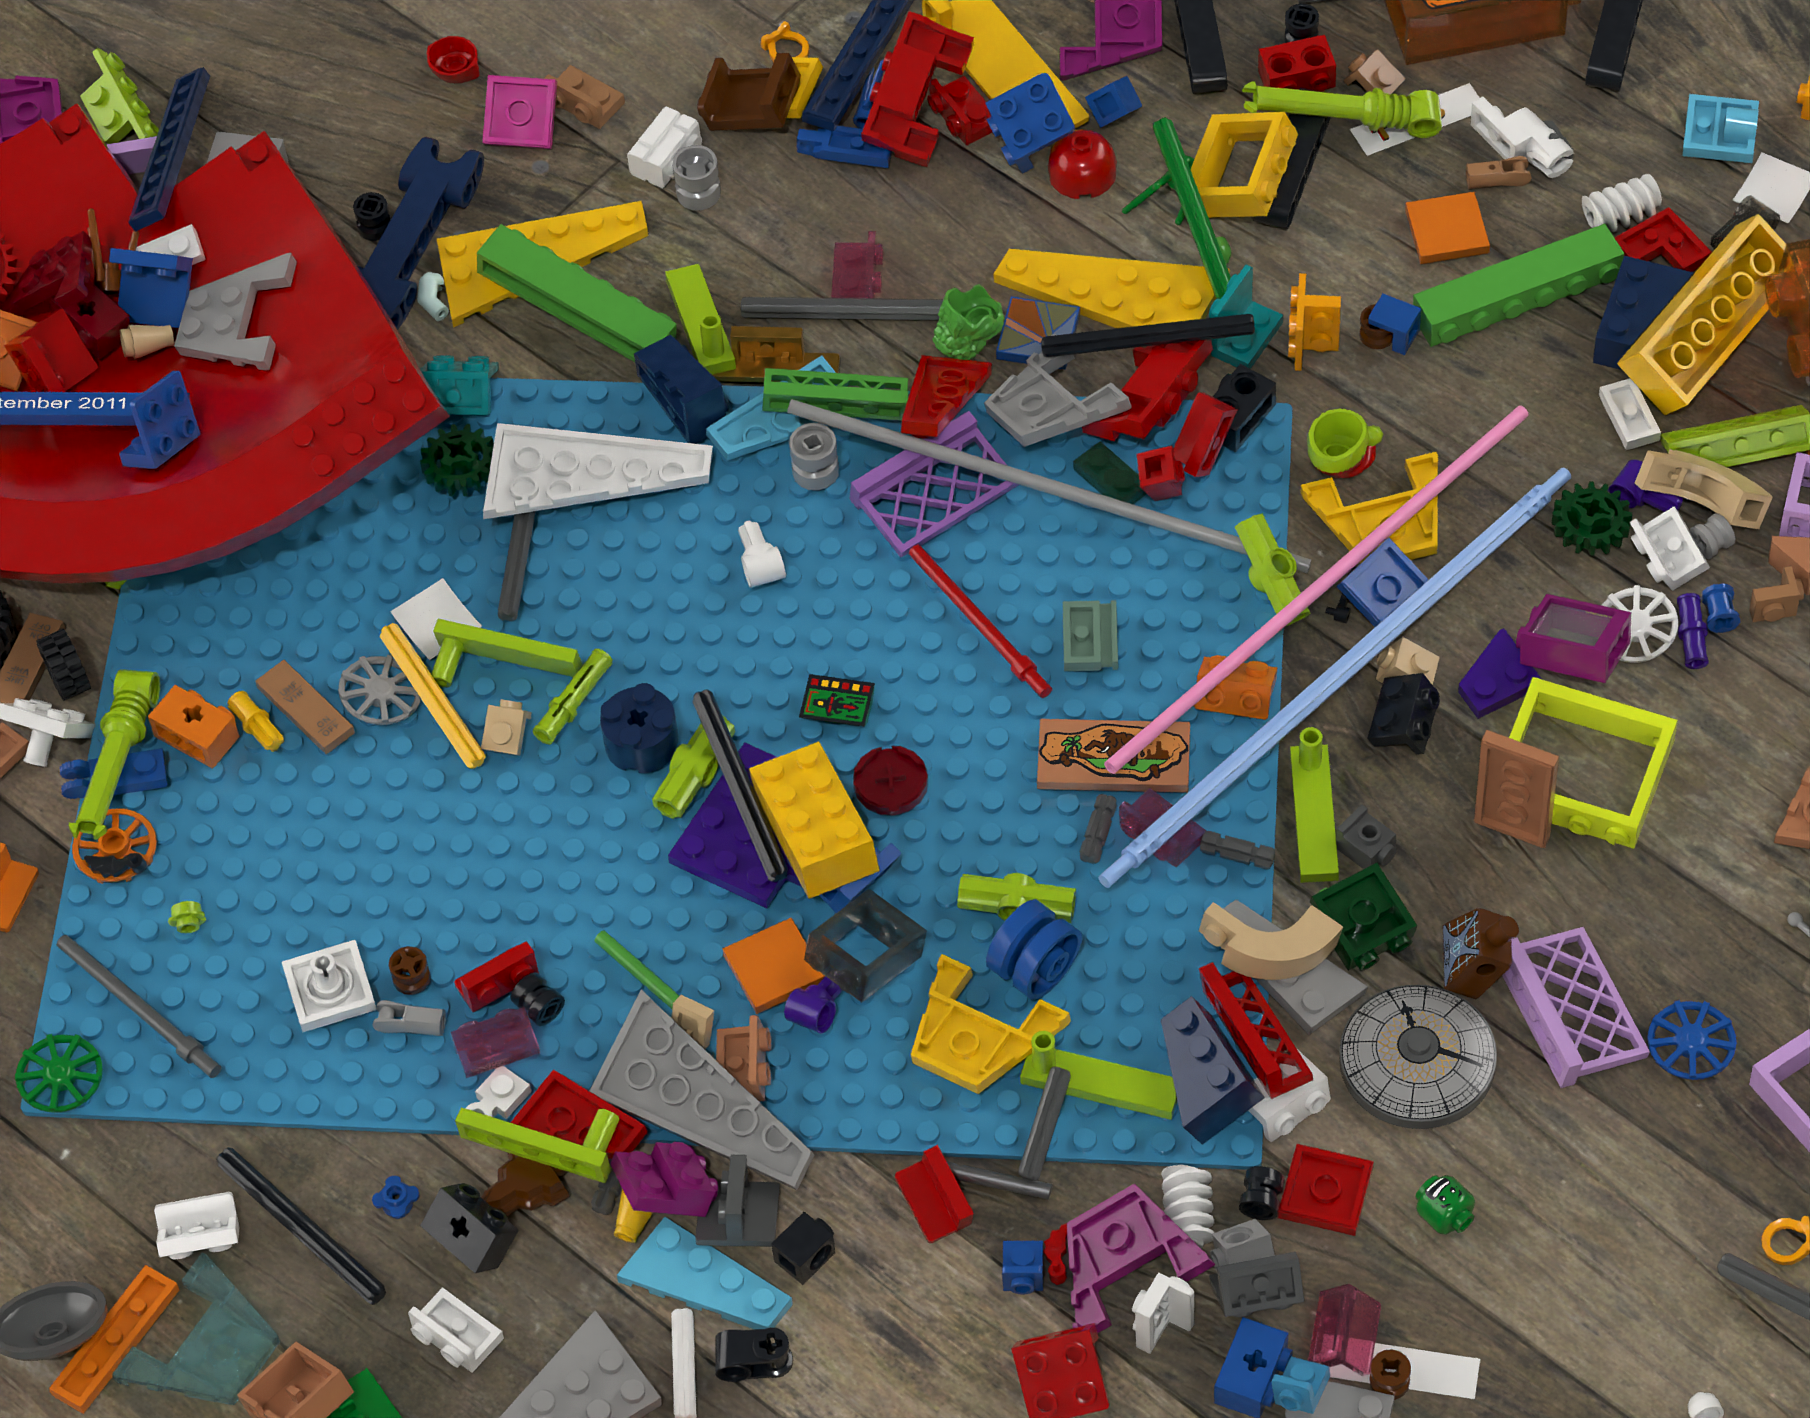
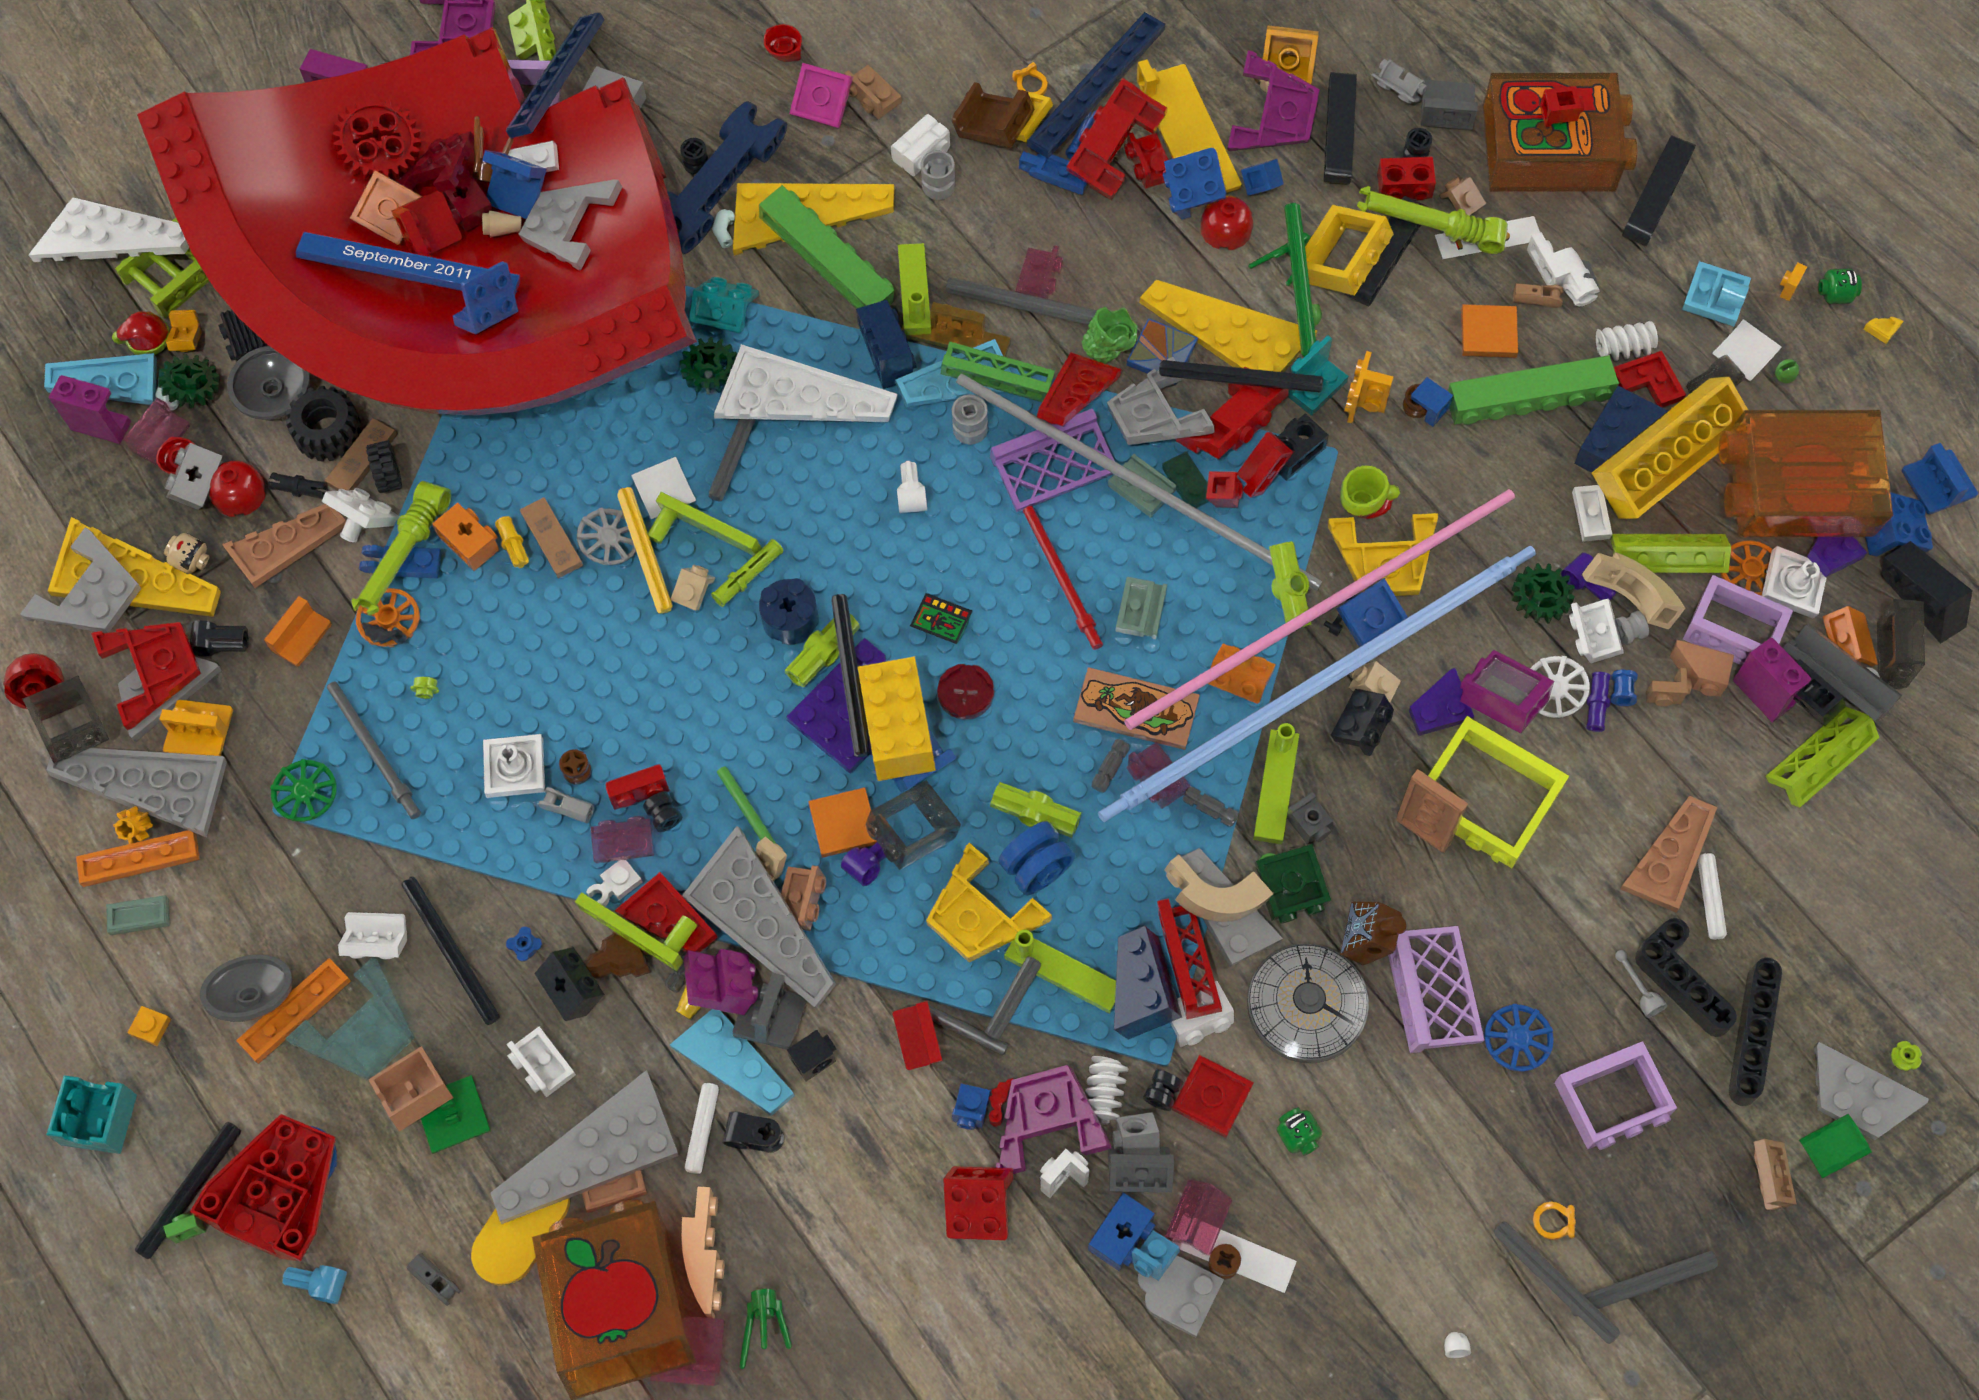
camera: 10 degrees right, 10 degrees up
(1050, 506) = (1136, 496): none -> sand green plate

